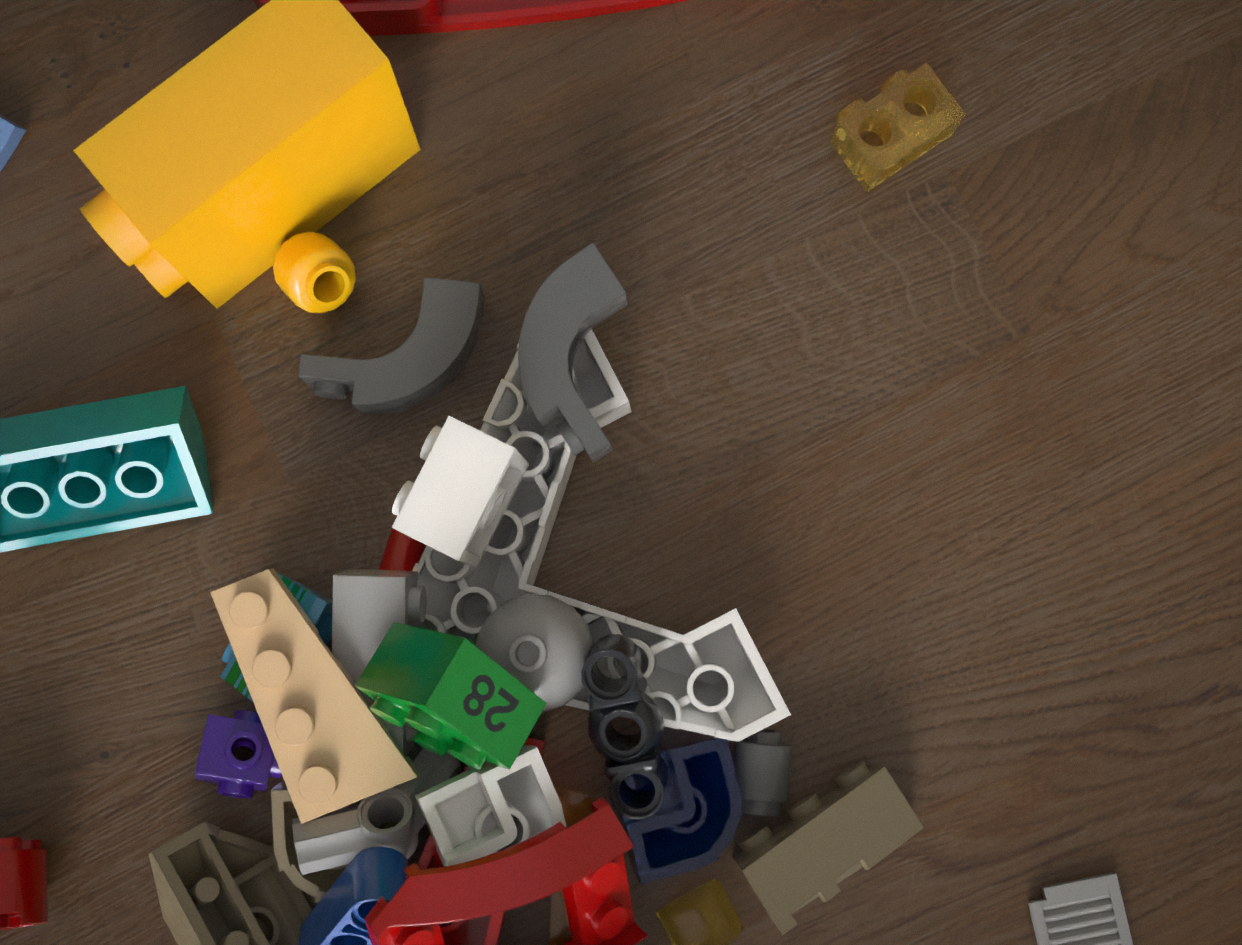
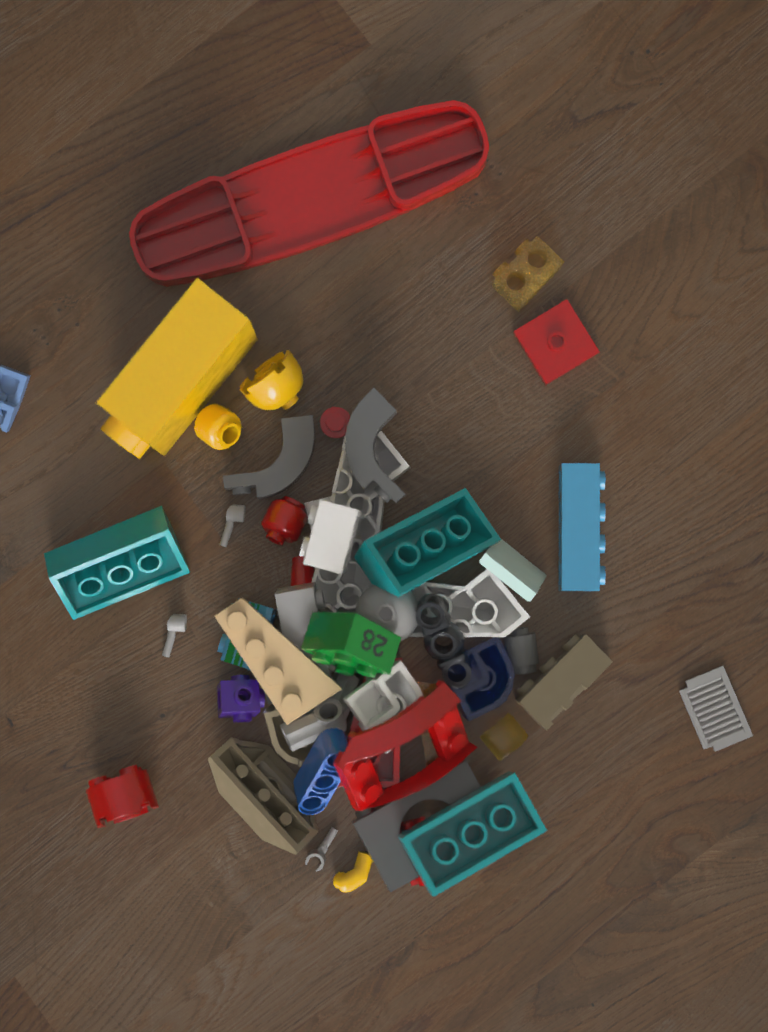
camera: 10 degrees left, 5 degrees up
(160, 597) = (175, 624): none -> light grey hand
(307, 428) = (234, 513): none -> light grey hand
(389, 455) = (284, 520): none -> red head
(429, 221) = (275, 383): none -> yellow cylinder
(511, 306) = (334, 422): none -> red plate
(627, 544) = (426, 544): none -> teal slope
(776, 623) = (513, 569): none -> light aqua tile
(907, 574) = (580, 527): none -> dark azure brick
(922, 252) = (556, 342): none -> red plate

